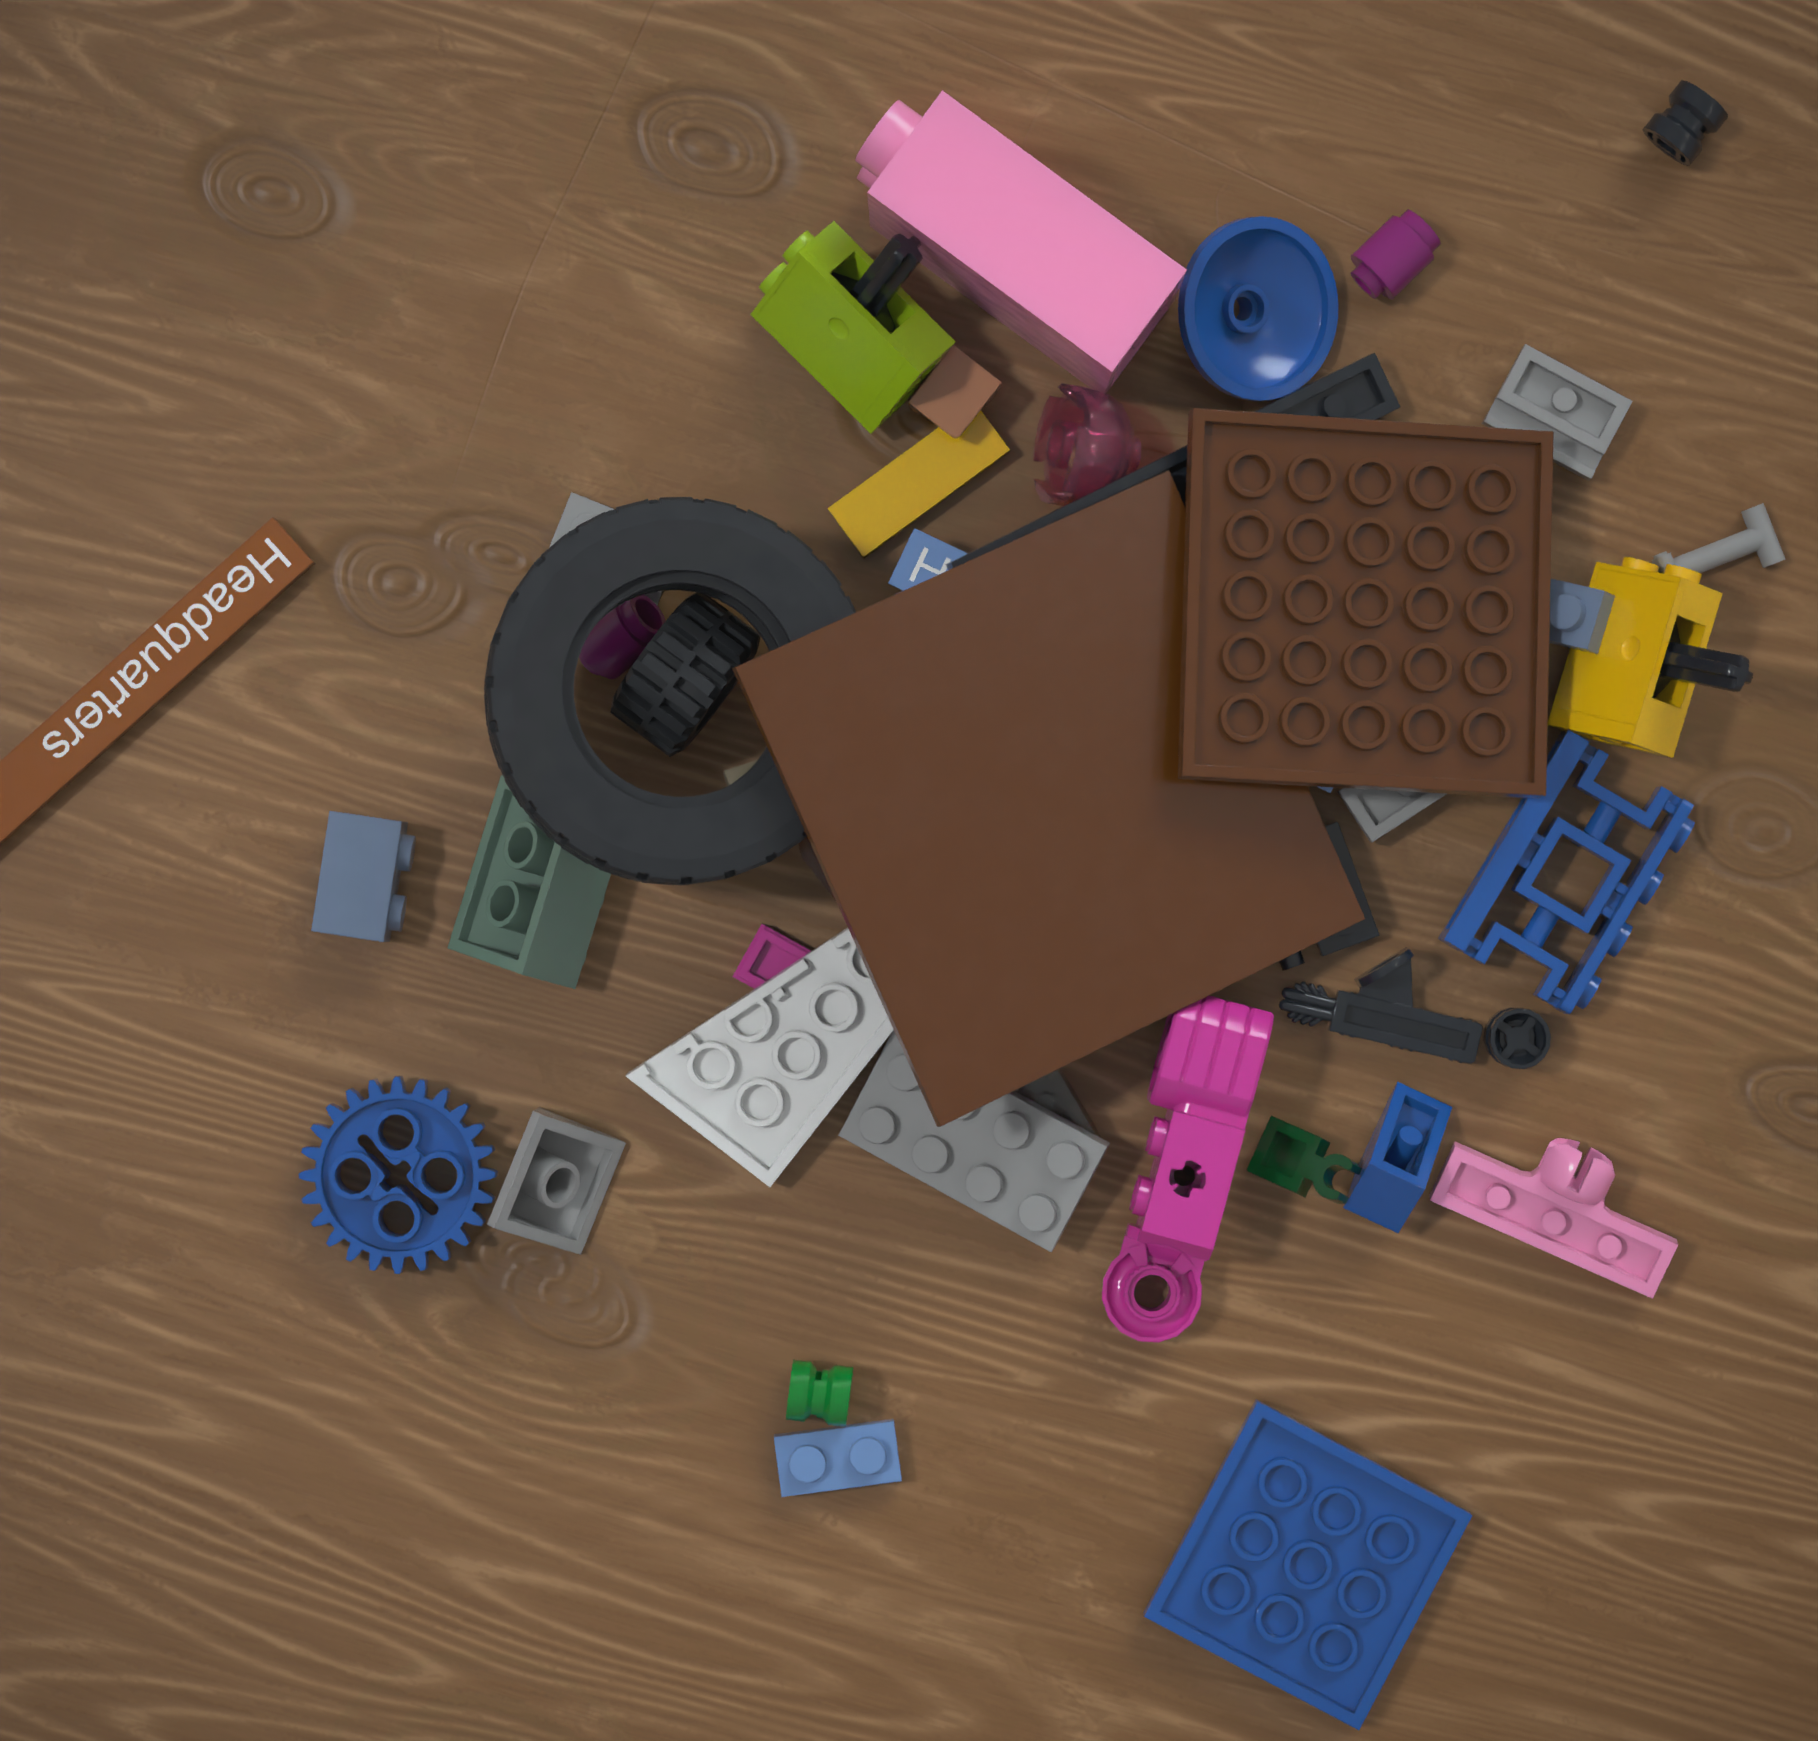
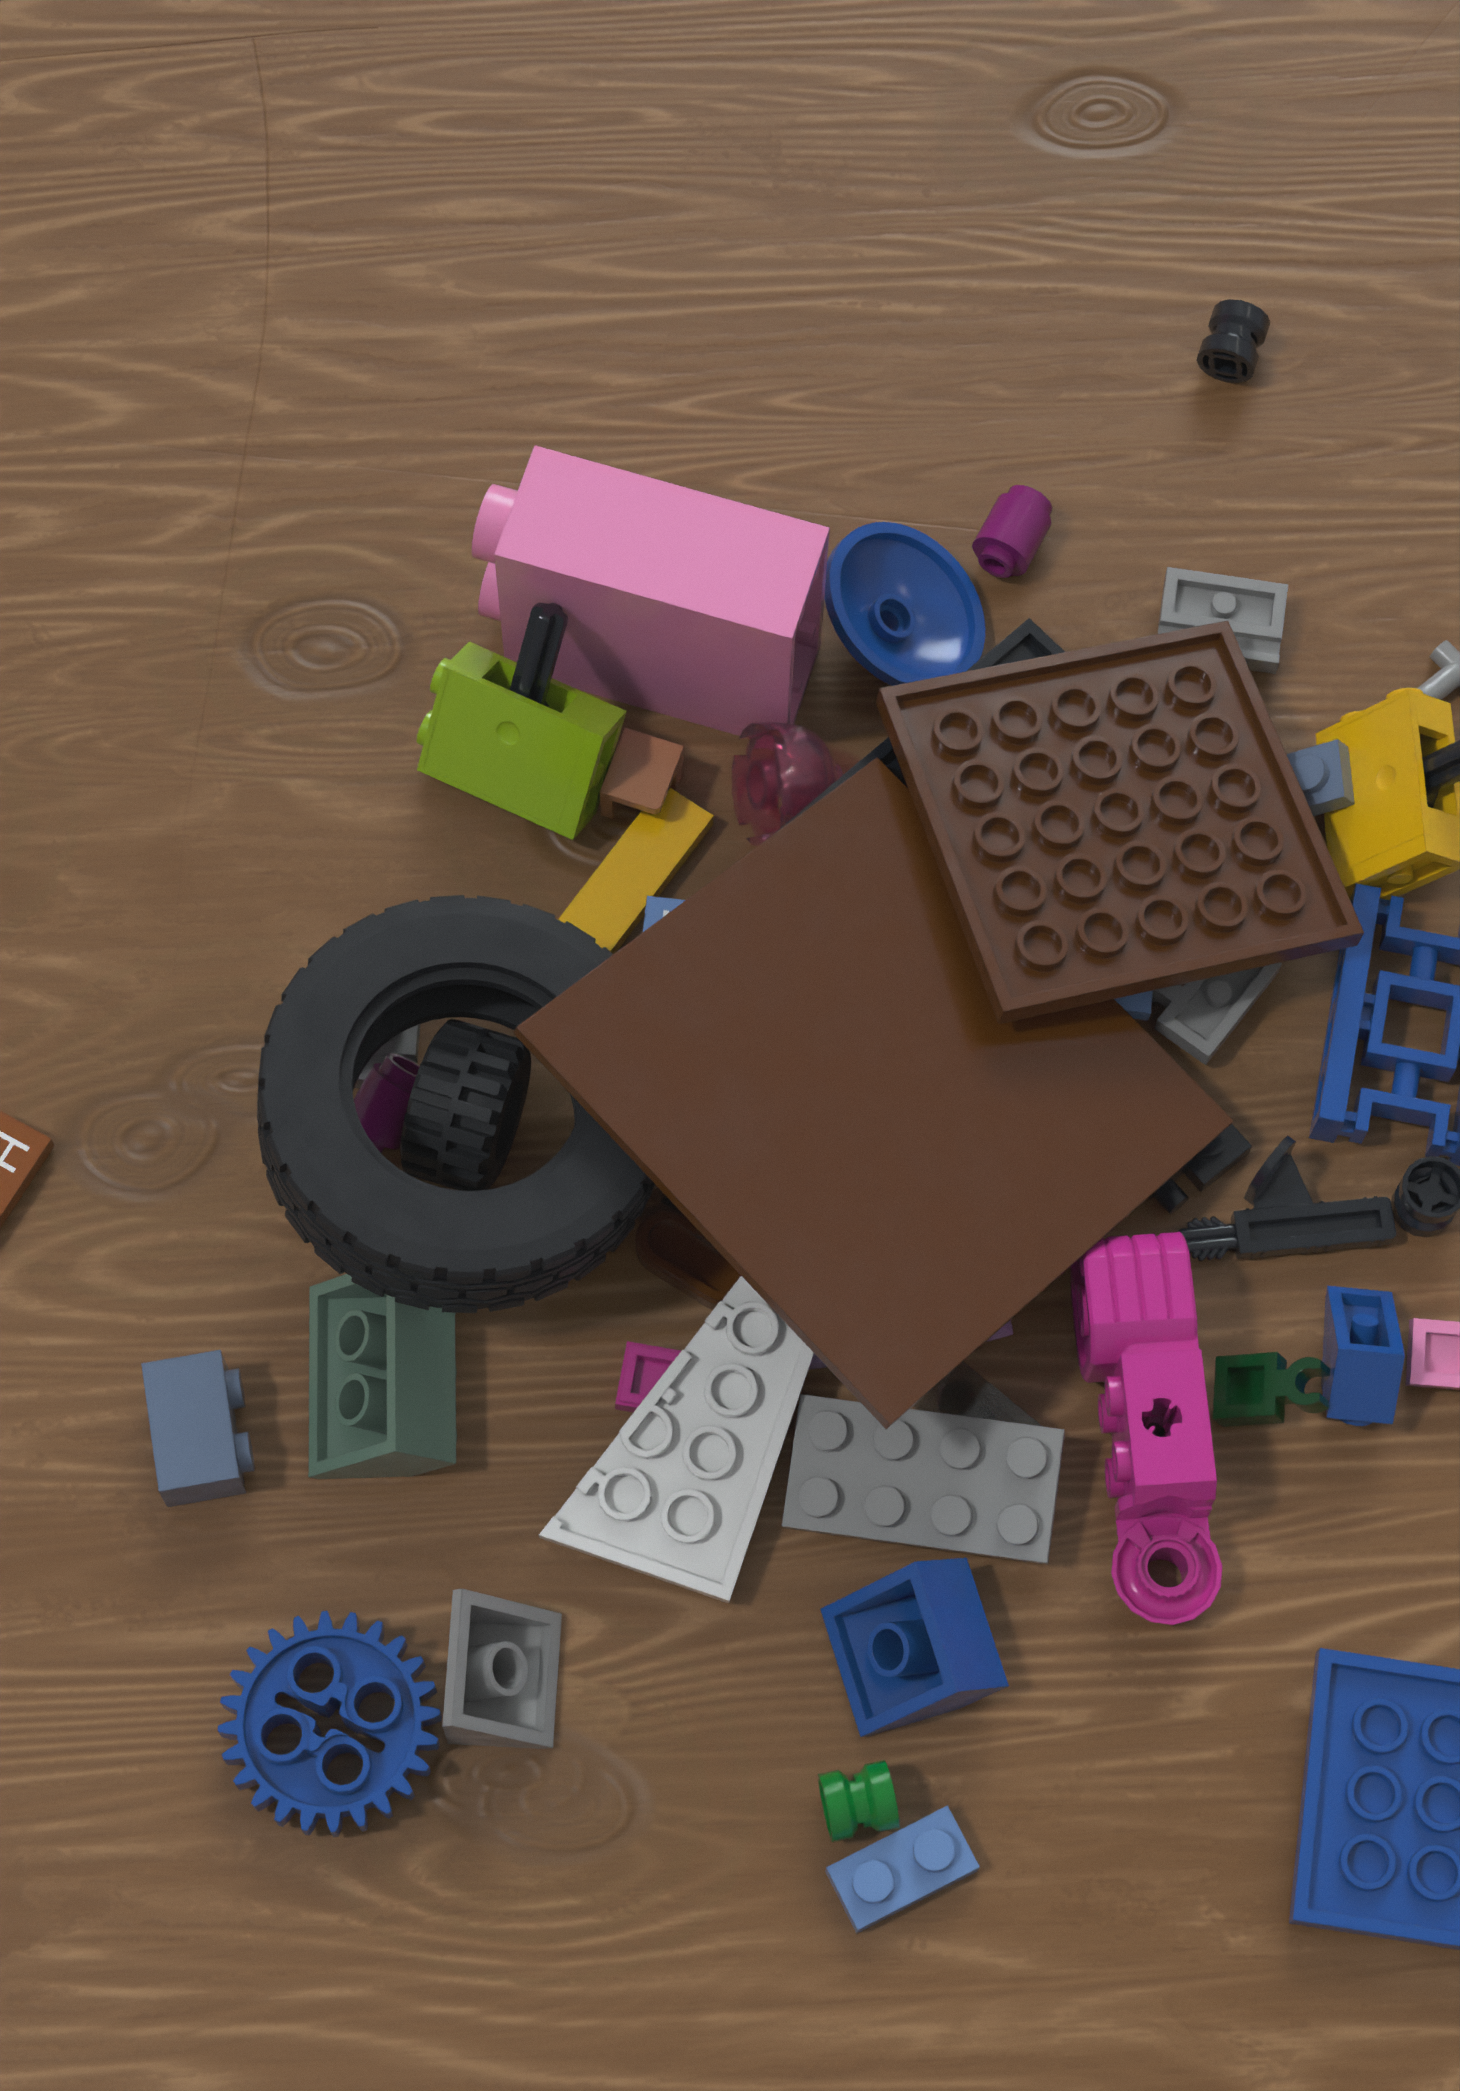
camera: 20 degrees left, 20 degrees down
(914, 1280) = (914, 1645): none -> blue slope

